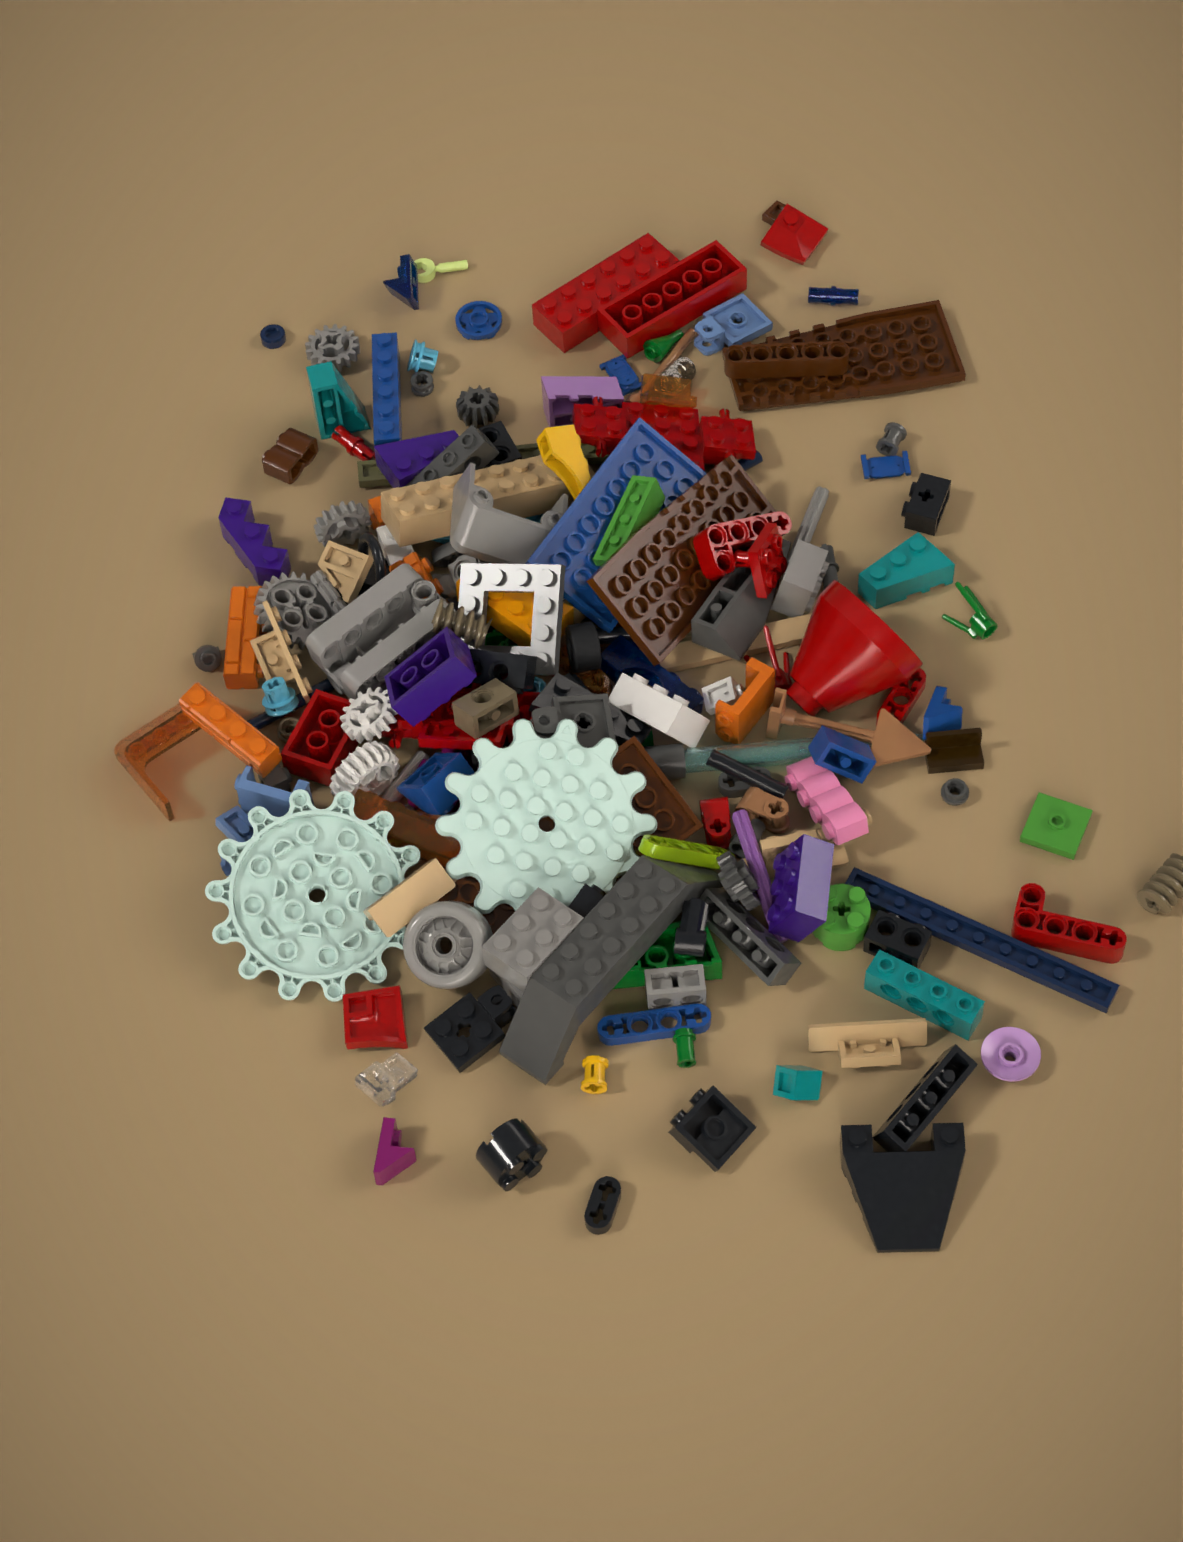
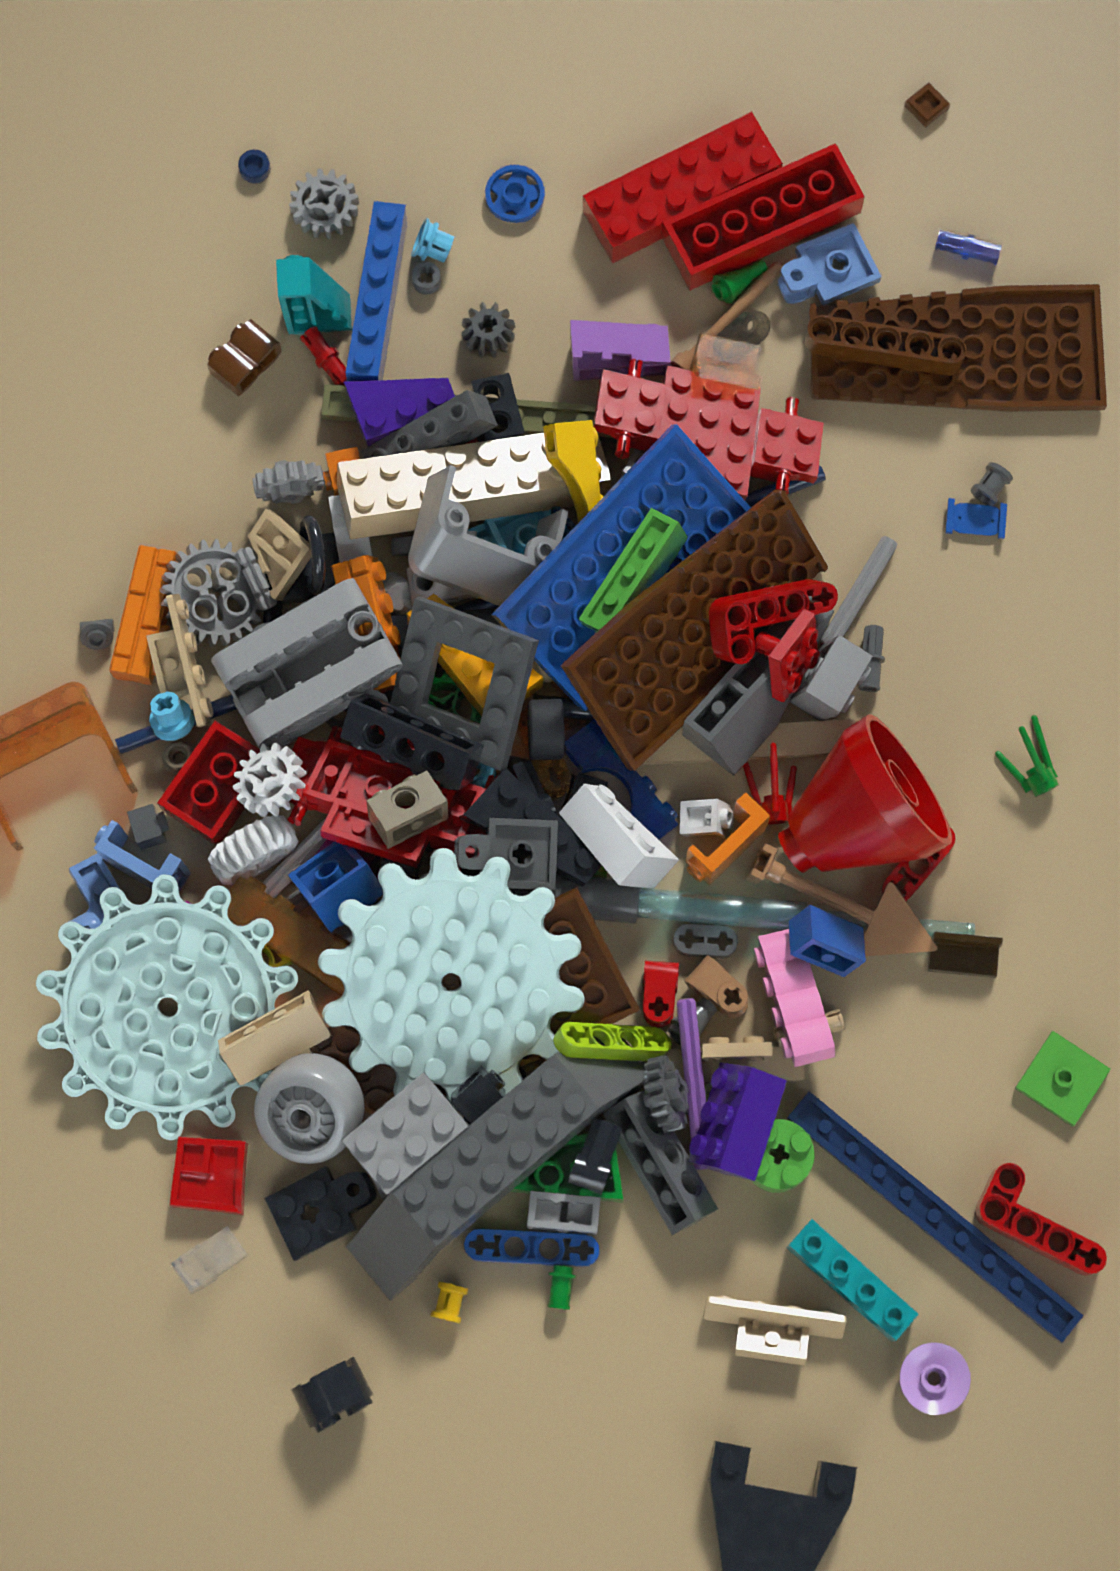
camera: 10 degrees right, 20 degrees up
(230, 729) = (100, 764): orange brick -> none
(252, 541) = (177, 480): dark purple brick -> none
(390, 1157) = (192, 1363): magenta slope -> none
(406, 286) = (433, 129): clear blue slope -> none
(430, 268) = (470, 101): yellowish green piece -> none
(430, 676) = (347, 756): dark purple brick -> none
(460, 623) = (397, 687): dark tan piece -> none
(609, 1206) = (418, 1466): black beam -> none
(625, 375) = (678, 313): blue piece -> none
(711, 1127) = (568, 1401): black plate -> none
(746, 774) = (709, 943): black pin -> none
(794, 235) = (939, 143): red plate -> none
(797, 1082) = (680, 1362): teal panel -> none
(901, 933) = (833, 1207): black brick -> none
(903, 571) = (963, 686): teal wedge -> none
(925, 1100) = (821, 1423): black brick -> none
(926, 504) = (1020, 572): black brick -> none
(941, 714) = (957, 908): blue slope -> none
(958, 786) = (962, 1004): dark grey plate -> none

